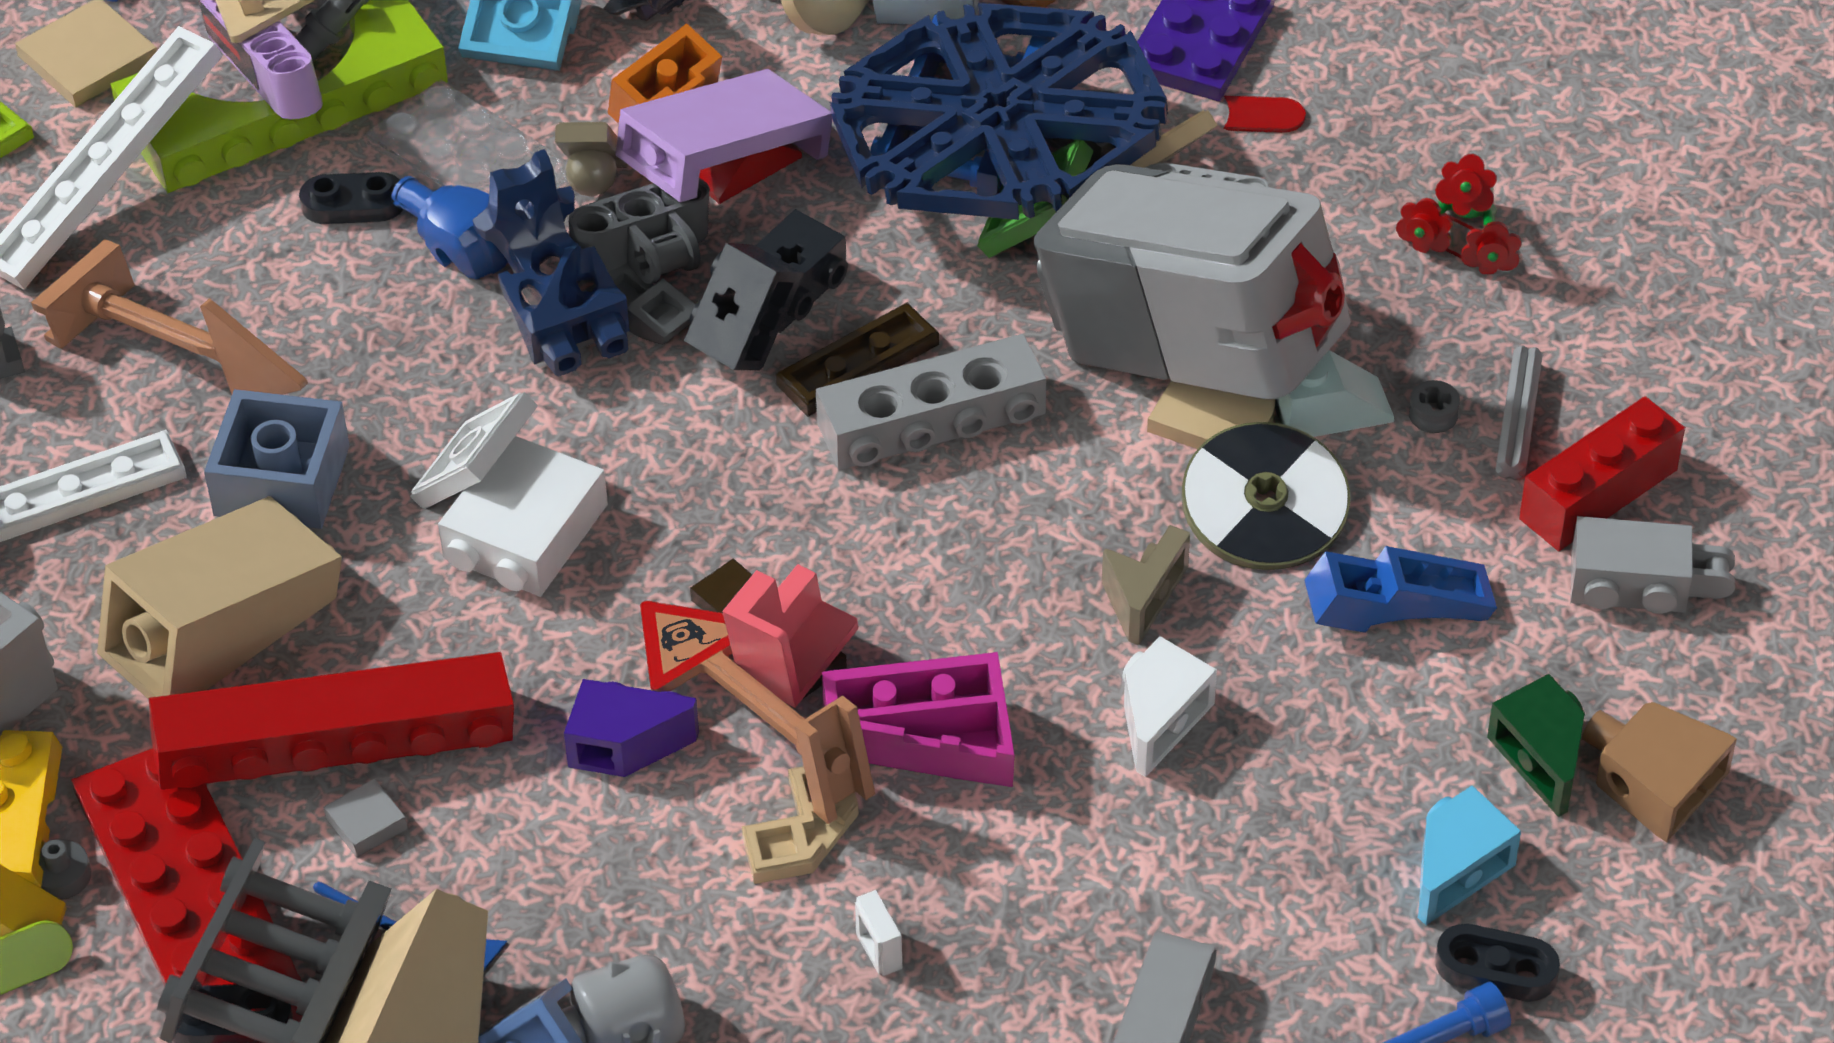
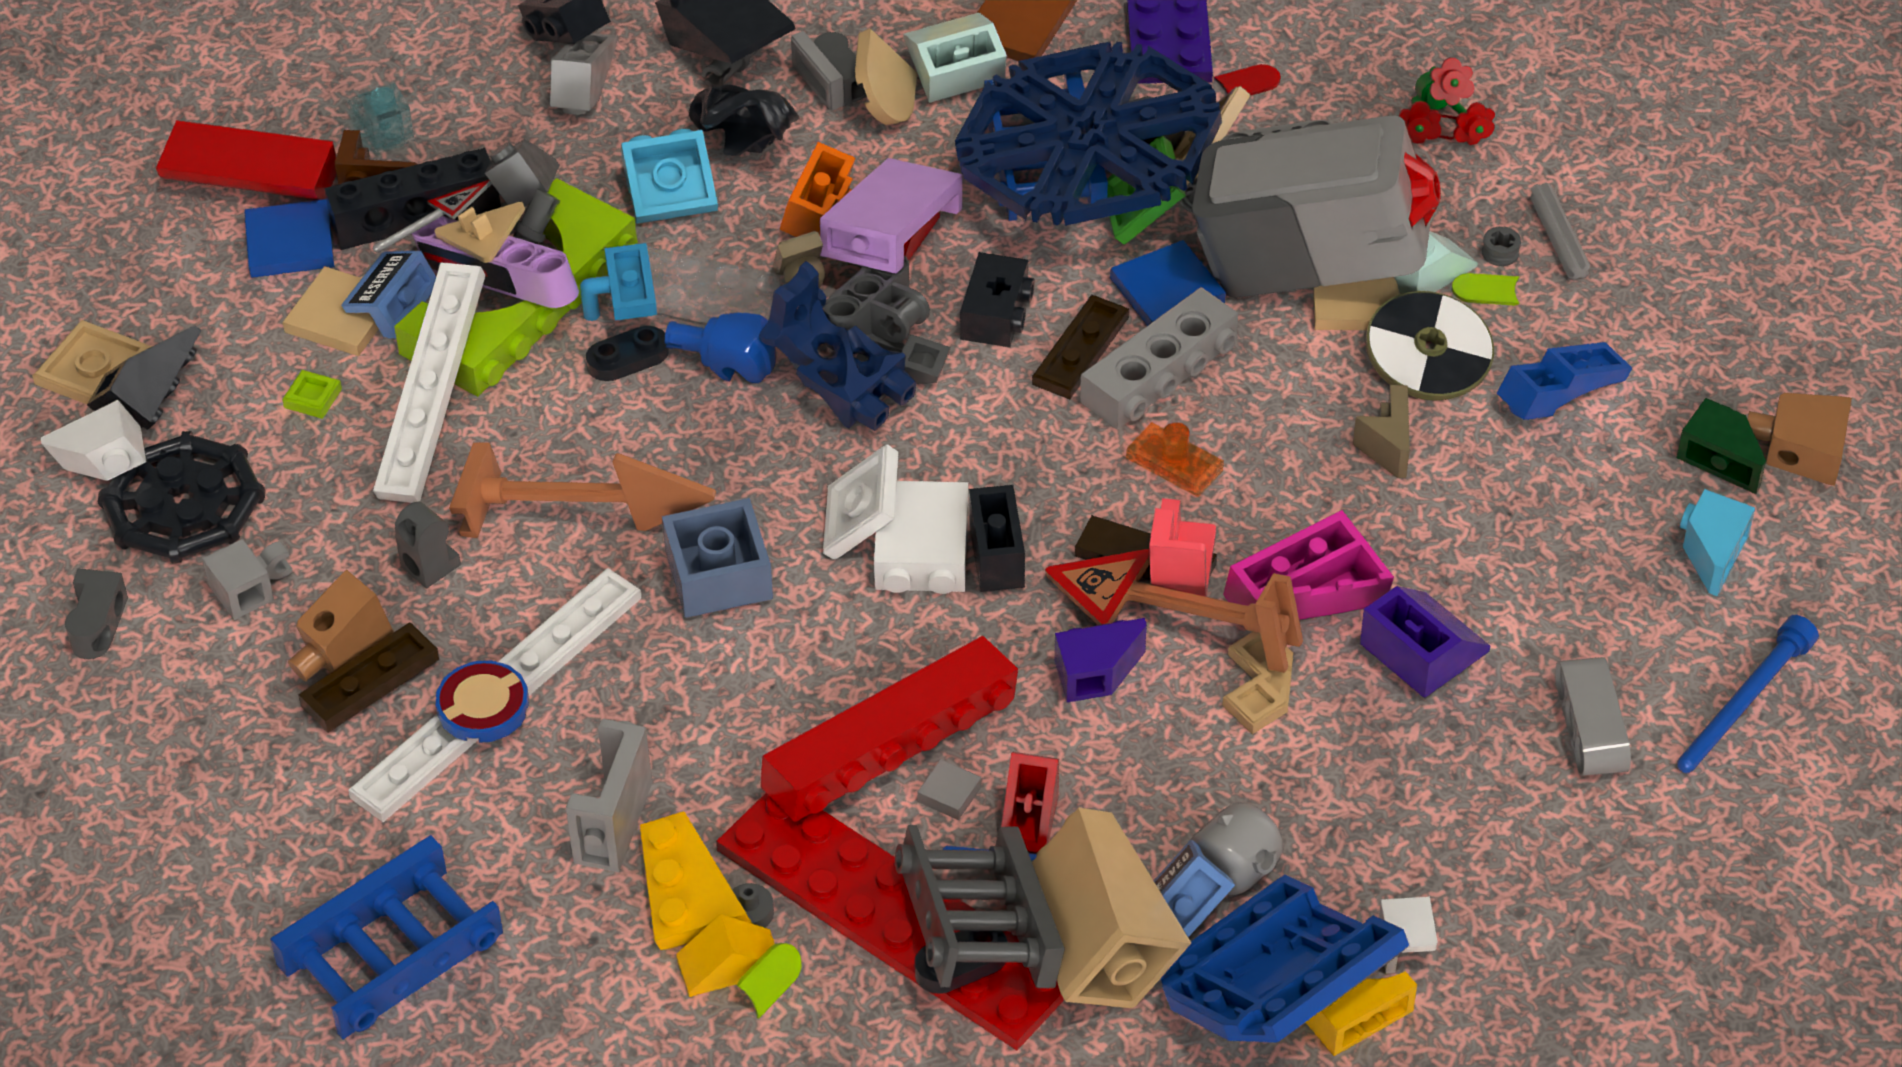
camera: 25 degrees left, 0 degrees up
(134, 42) = (392, 289): none -> medium blue panel
(212, 598) = (737, 677): tan slope -> none
(384, 120) = (627, 281): none -> dark azure plate
(437, 854) = (1031, 797): none -> red slope
(597, 545) = (996, 538): none -> black brick
(743, 306) = (998, 356): brick -> none
(877, 527) = (1174, 458): none -> clear orange tile
(878, 933) = (1370, 733): white tile -> none
(1001, 308) = (1163, 280): none -> blue tile
(1015, 840) = (1419, 639): none -> dark purple slope
(1164, 699) = (1453, 507): white slope -> none
(1385, 451) = (1486, 288): none -> lime piece
(1497, 960) = (1782, 599): black plate -> none
(1602, 471) = (1646, 253): red brick -> none
(1645, 566) = (1710, 306): light grey brick -> none

